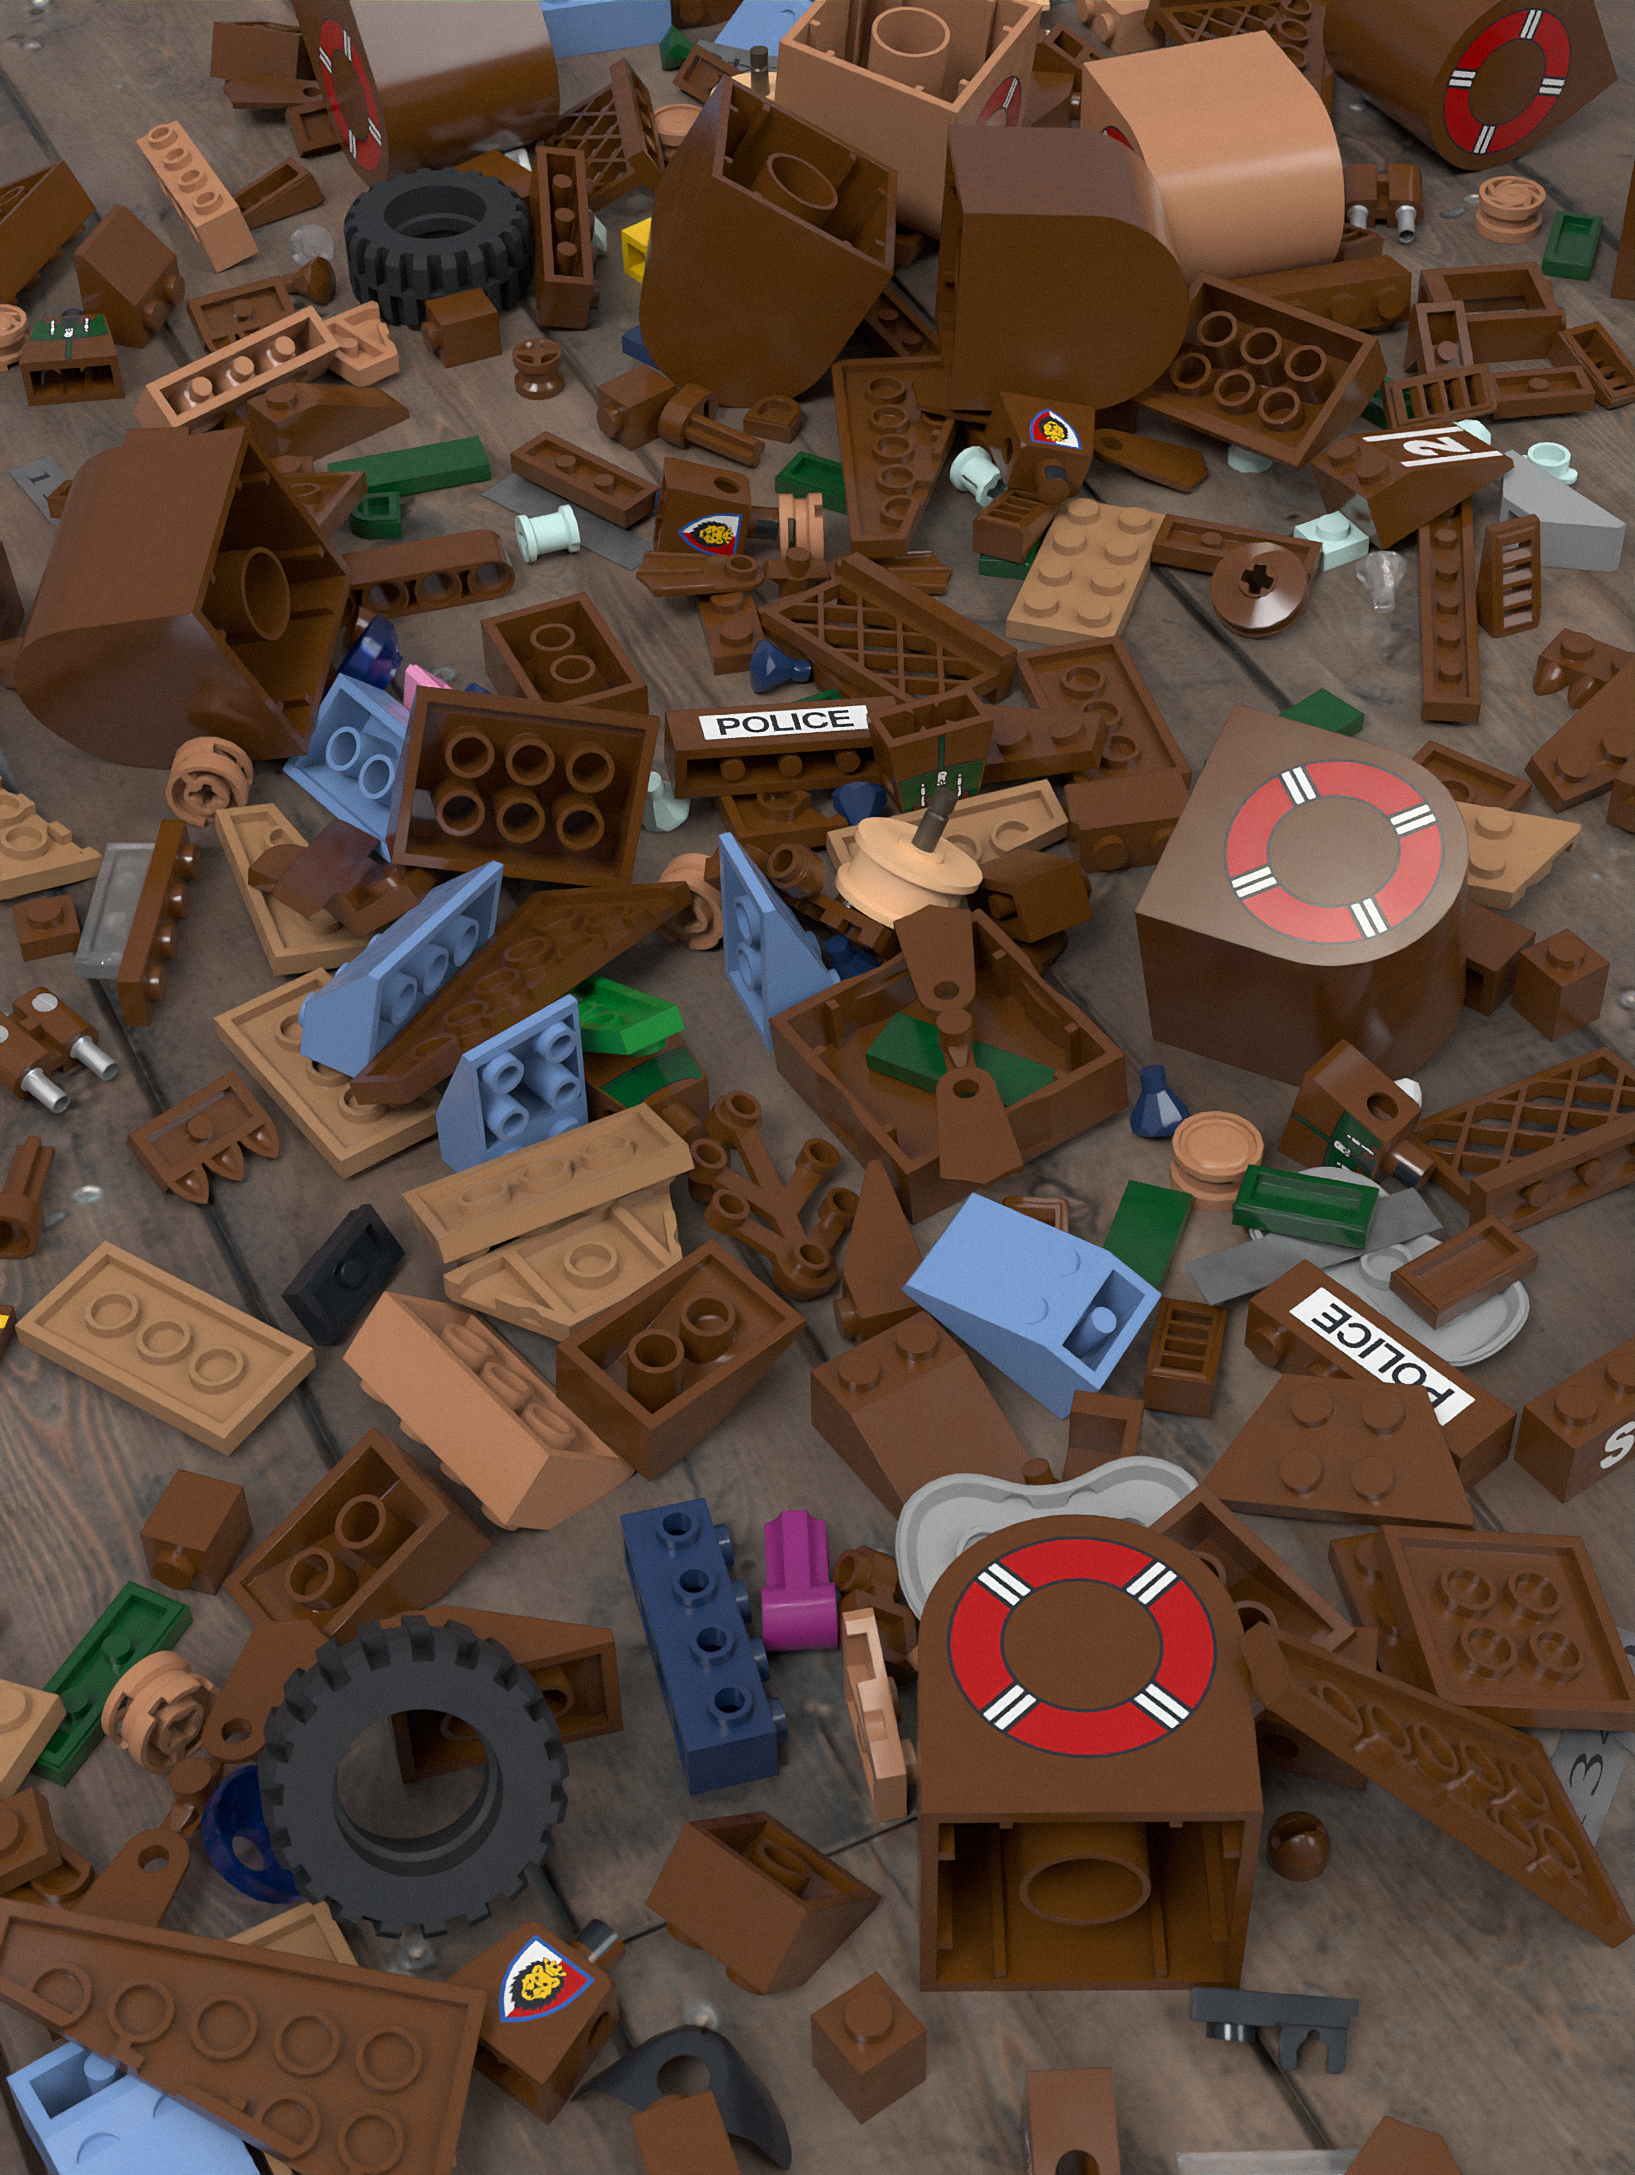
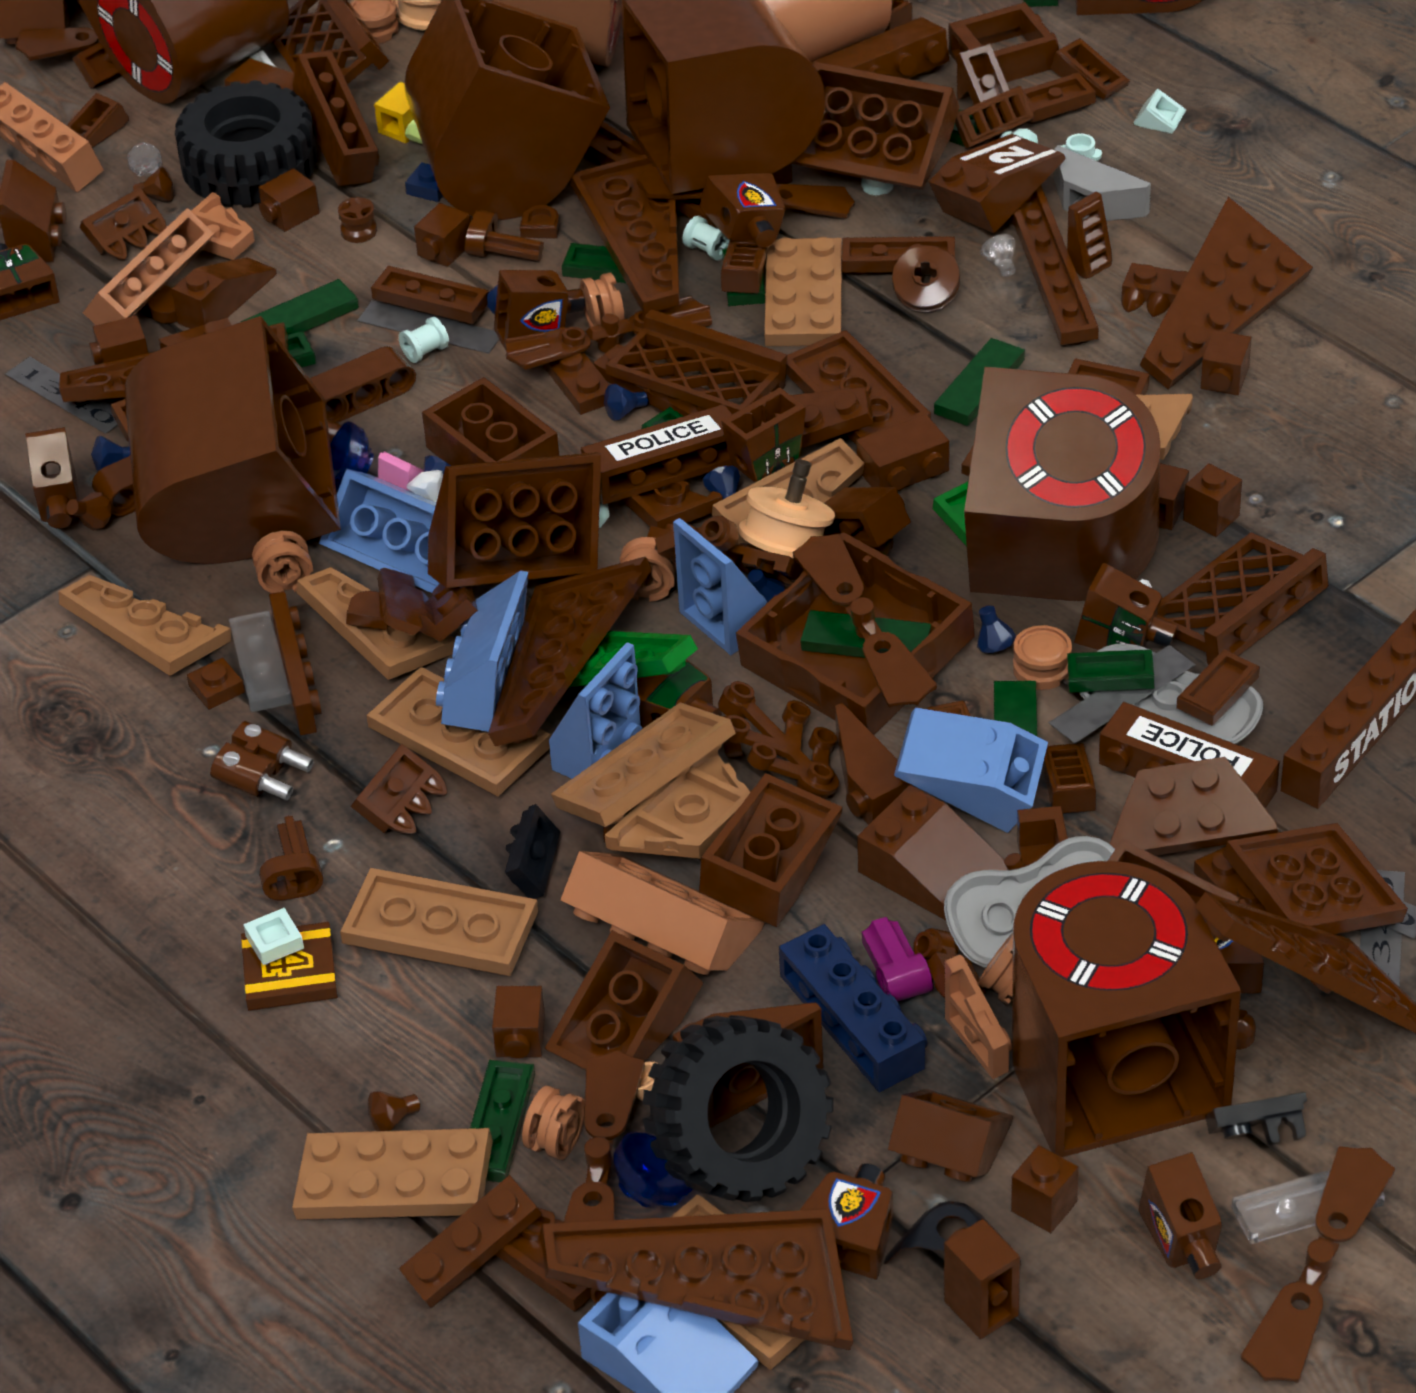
camera: 15 degrees left, 0 degrees up
(1340, 539) = (964, 230): light aqua plate -> none

